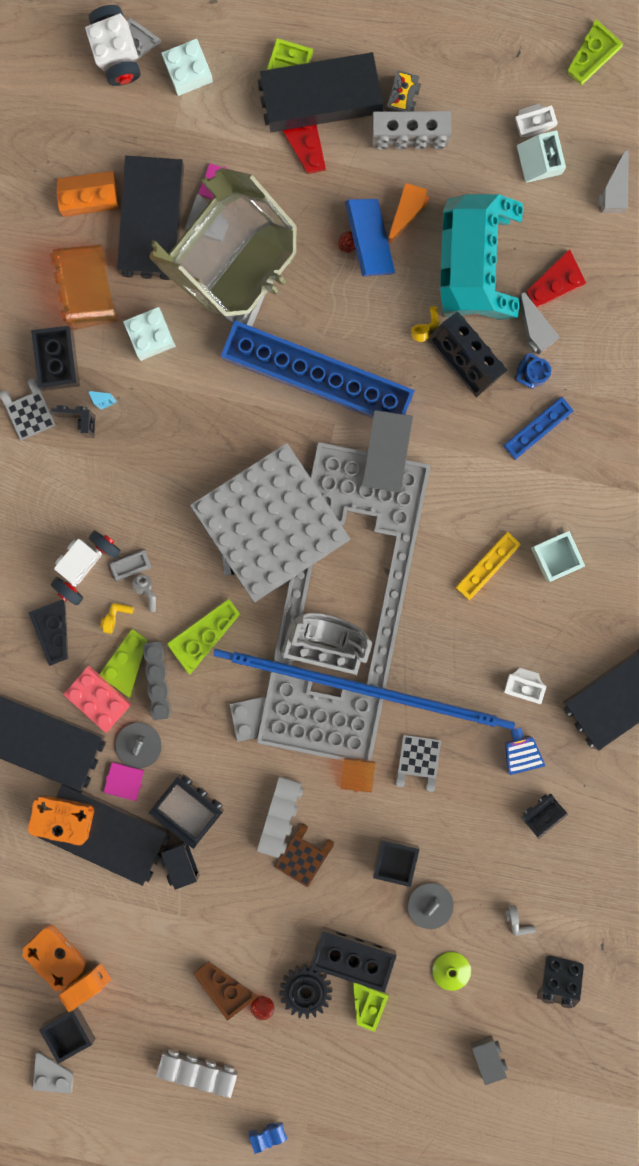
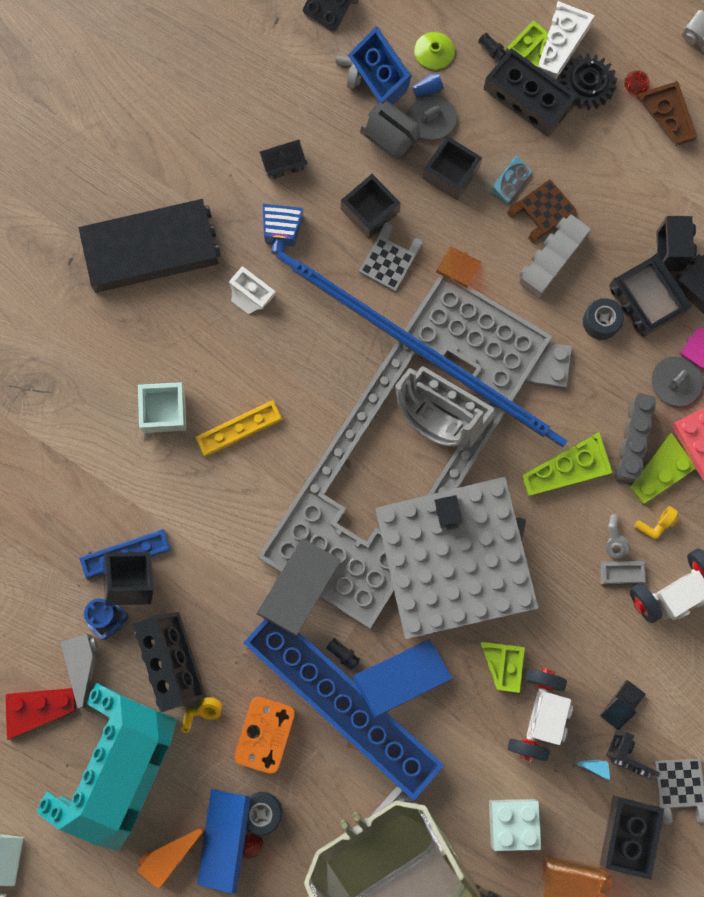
camera: 160 degrees left, 10 degrees down
(95, 459) = (623, 705): none -> black slope
(151, 423) = (547, 717): none -> brick
(199, 454) = (505, 665): none -> lime wing
(218, 775) = (603, 311): none -> black wheel
(278, 411) = (402, 678): none -> blue tile
(289, 553) = (448, 512): none -> black brick
(331, 414) = (345, 655): none -> black pin
(340, 872) = (511, 180): none -> slope
(341, 1027) = (564, 36): none -> white wing
(347, 260) = (262, 822): none -> black wheel
(362, 329) = (273, 737): none -> orange axle
(400, 992) = (495, 49): none -> black pin
(443, 934) = (429, 85): none -> blue cone
(453, 799) = (370, 205): none -> black piece
(460, 875) = (391, 130): none -> dark grey cylinder
(492, 929) = (381, 67): none -> blue slope
(527, 406) = (127, 578): none -> black piece

